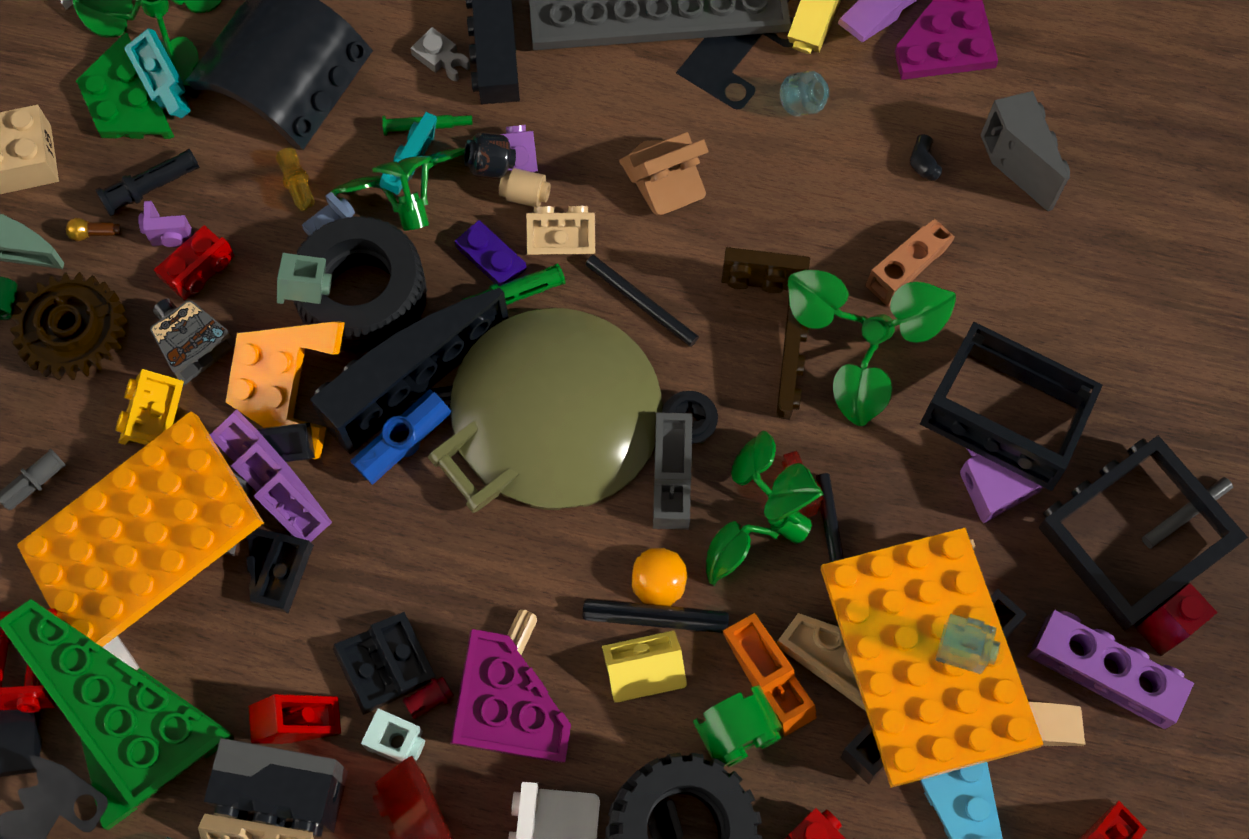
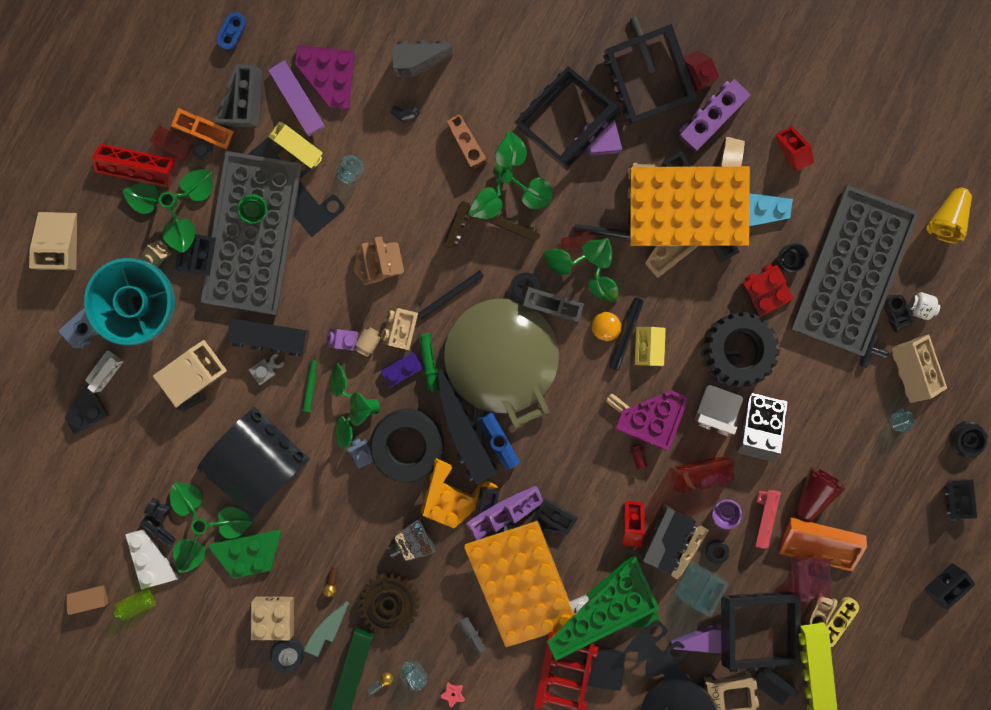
camera: 80 degrees left, 20 degrees up
(133, 188) = (312, 557): black pin -> none
(150, 407) = (448, 568): yellow bracket -> none
(157, 73) = (243, 531): teal hinge -> none
(166, 231) = (345, 542): medium lavender bracket -> none
(195, 262) = (366, 531): red bracket -> none
(295, 178) = (329, 466): clear yellow axle -> none
(302, 279) = (402, 476): sand green brick -> none
(383, 663) = (614, 474): black slope -> none
(387, 726) = (656, 485): light aqua brick -> none
(419, 140) = (334, 402): teal hinge -> none
(489, 155) = (349, 357): black head -> none
(738, 726) = (696, 309): green brick -> none
(771, 670) = (671, 285): orange slope -> none
(967, 644) = (695, 188): clear light blue brick -> none

